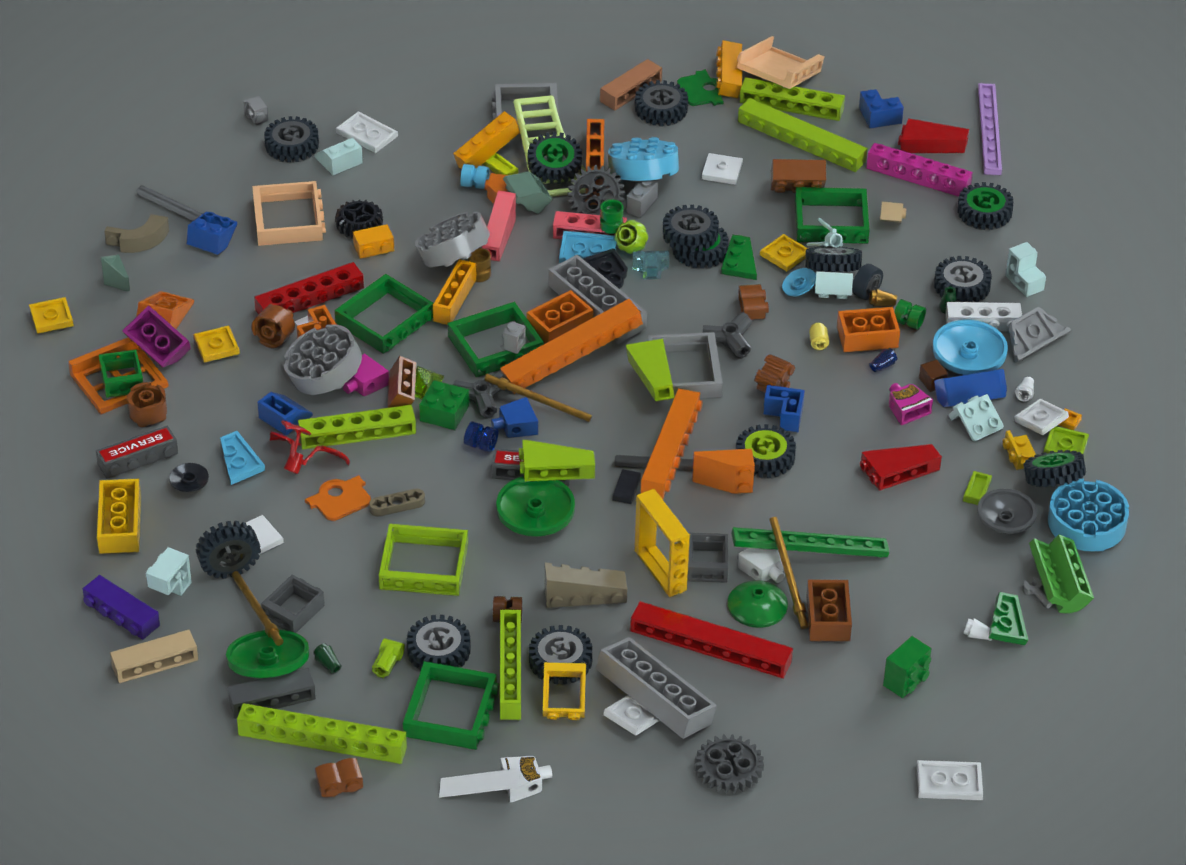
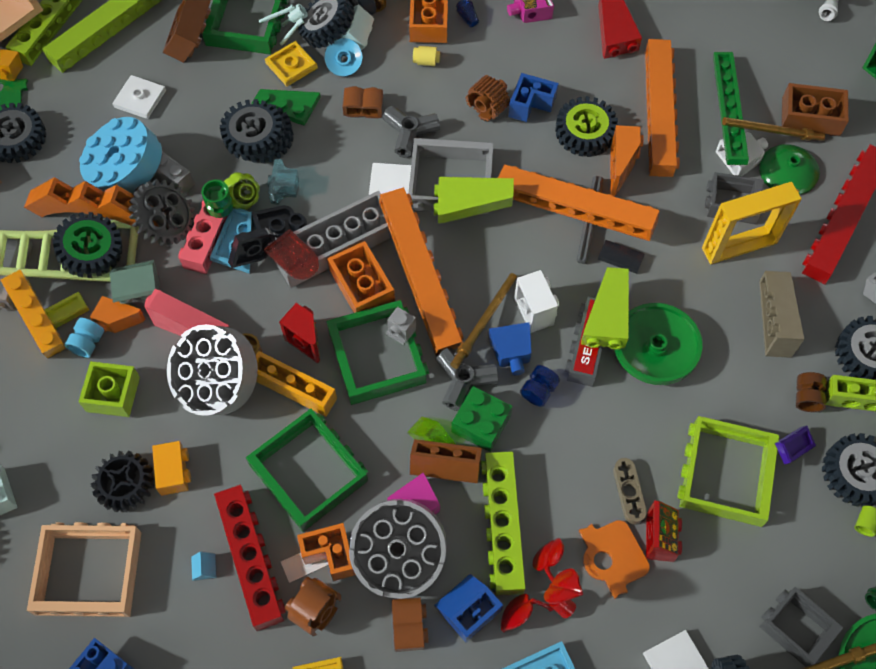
camera: 80 degrees left, 20 degrees up
(267, 380) = (408, 624): none -> dark orange brick
(299, 272) = (203, 566): none -> medium azure slope
(359, 512) = (662, 532): none -> red slope
(431, 196) = (109, 389): none -> lime slope
(453, 597) = (795, 444): none -> dark purple tile
(501, 288) = (300, 331): none -> red slope
(559, 422) = (536, 300): none -> white brick
(567, 269) = (293, 256): none -> clear red window
(571, 243) = (250, 246): none -> black plate
(669, 325) = (389, 177): none -> white tile
(804, 501) = (660, 108): none -> orange brick

